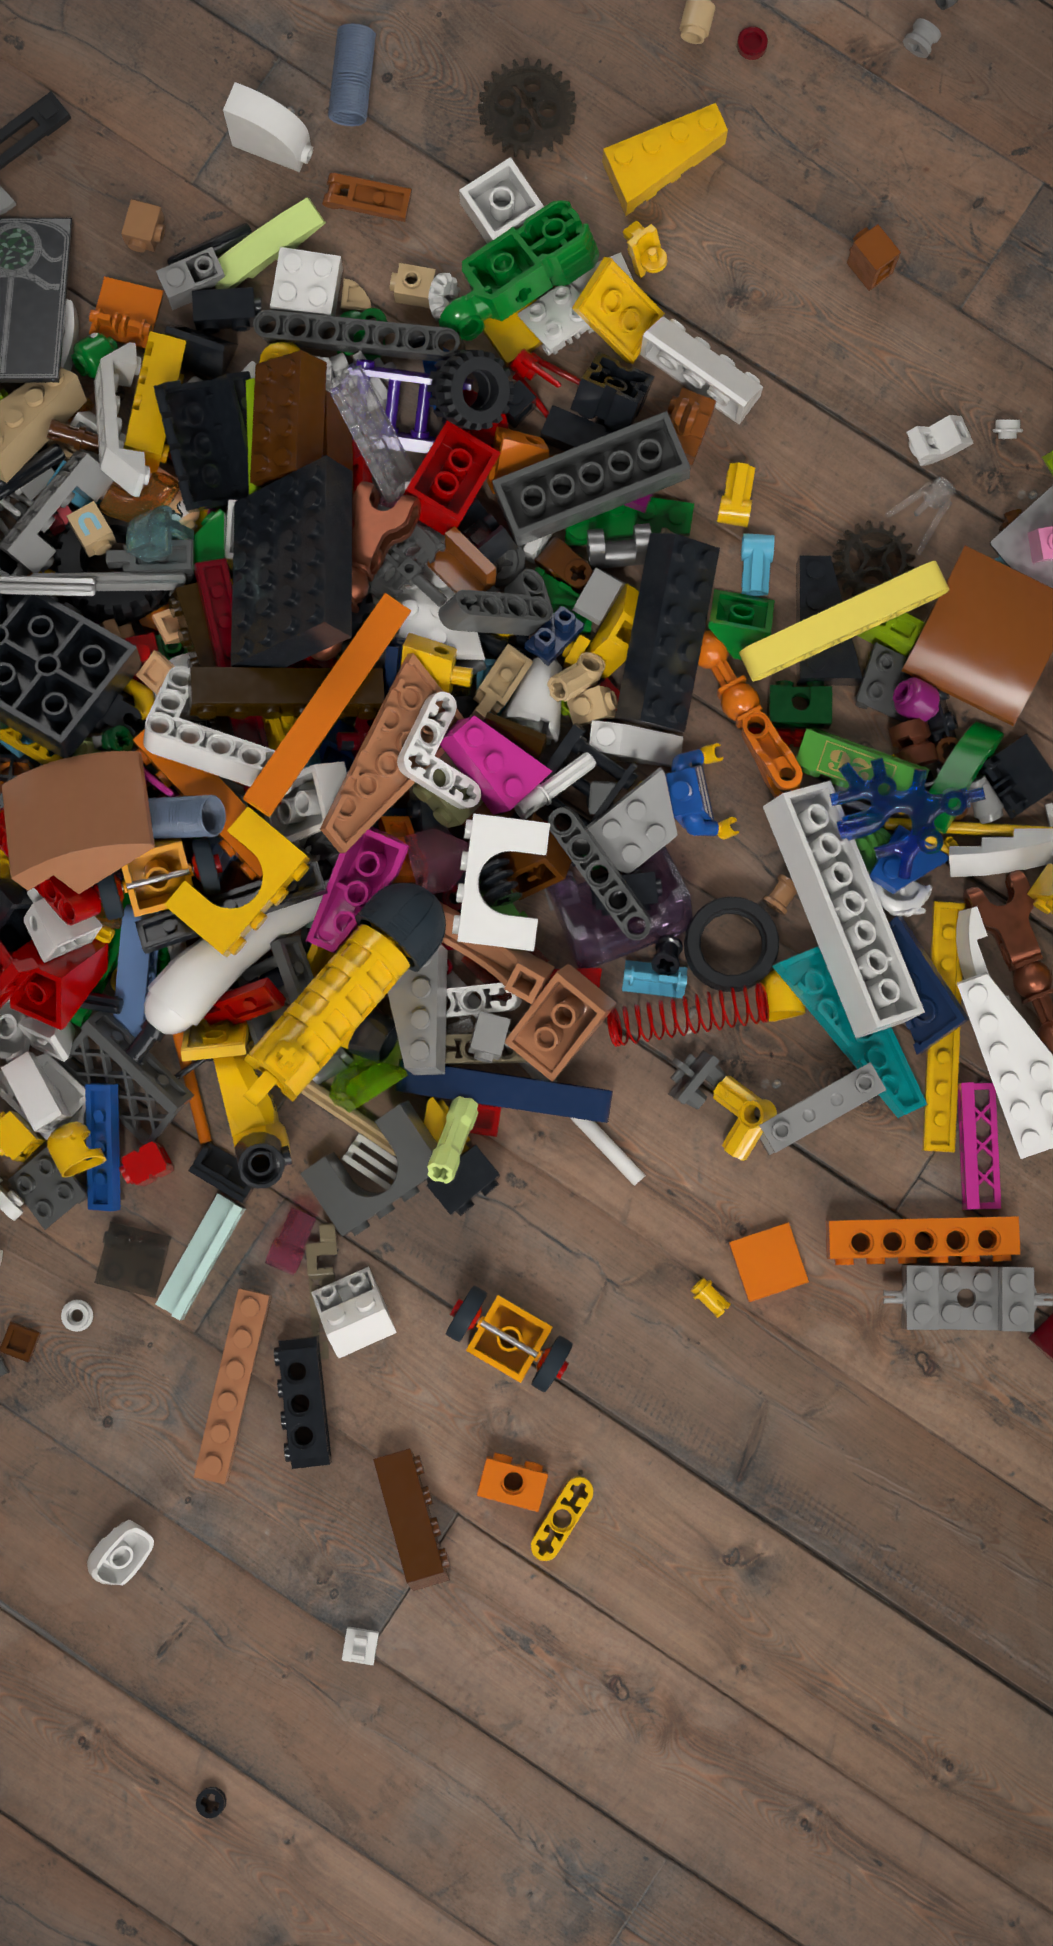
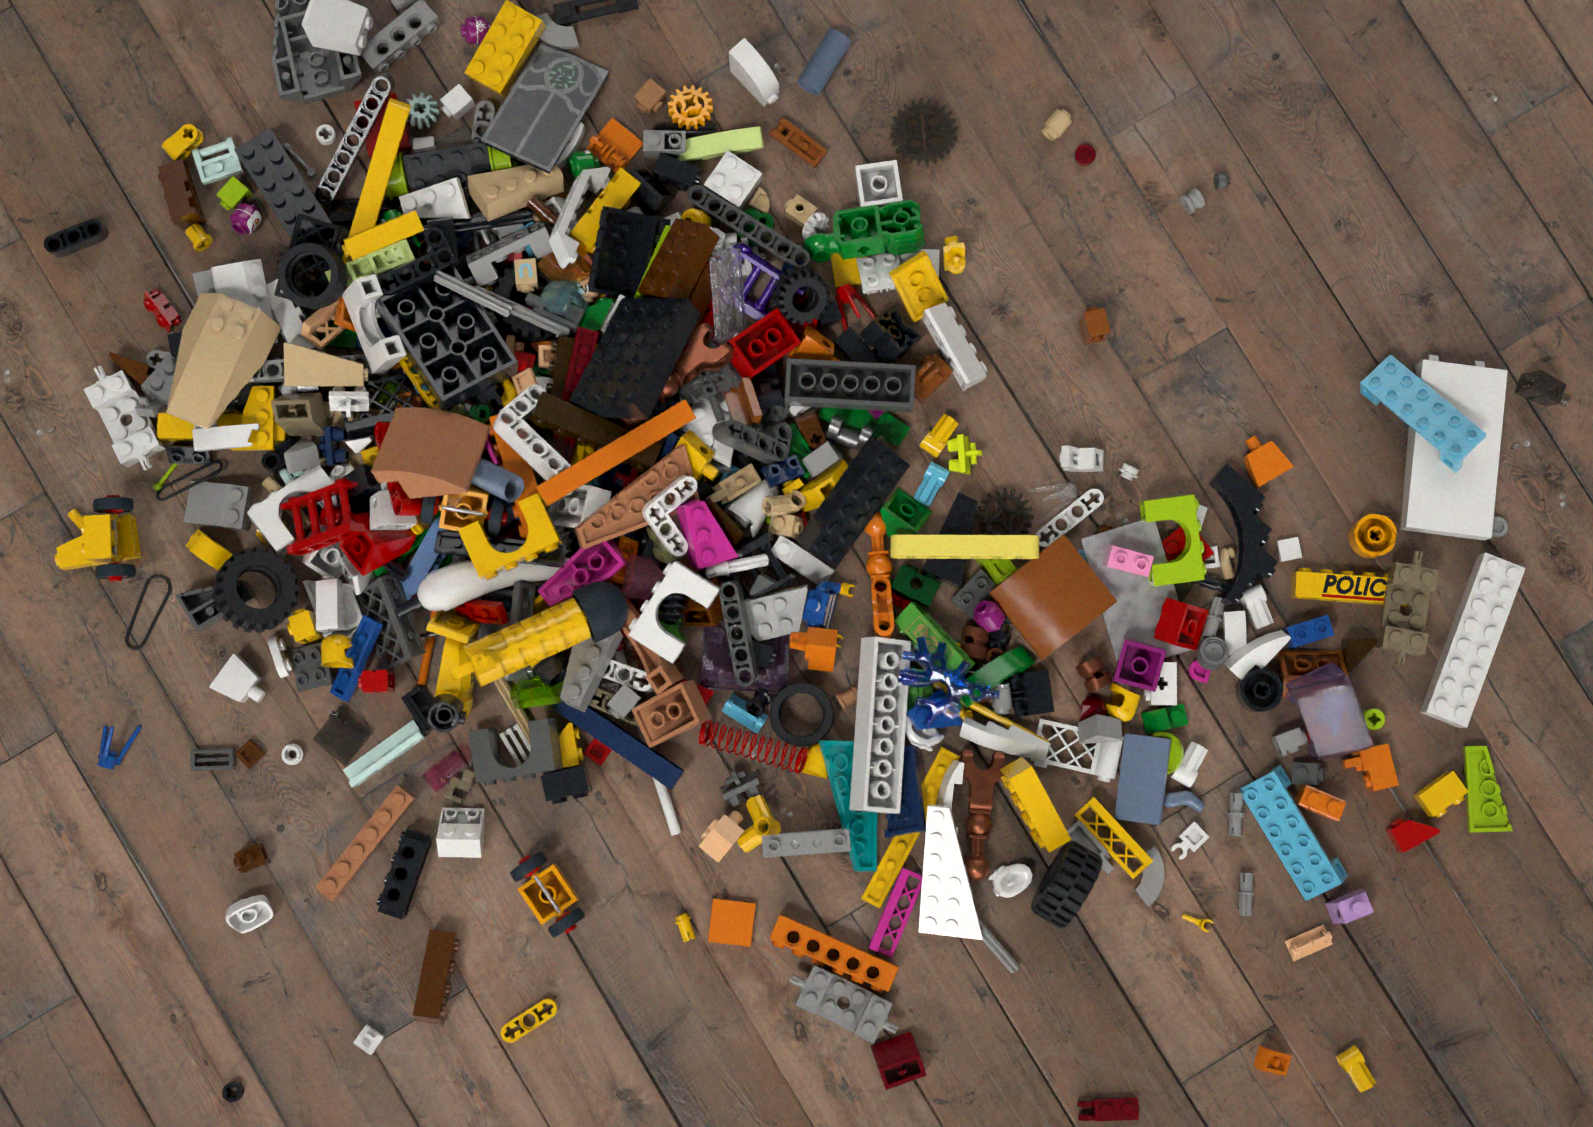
camera: 25 degrees right, 0 degrees up
(87, 1479) = (251, 858): none -> reddish brown brick
(203, 215) = (691, 110): none -> light orange gear
(446, 1156) = (563, 761): yellowish green axle -> none
(526, 1496) = (496, 981): orange brick -> none
(660, 155) = (992, 200): yellow wedge -> none
(703, 1153) = (721, 835): none -> light nougat brick
(713, 844) = (818, 647): none -> orange hinge
(770, 495) = (961, 445): none -> neon yellow hips
(958, 525) = (1069, 518): none -> white beam

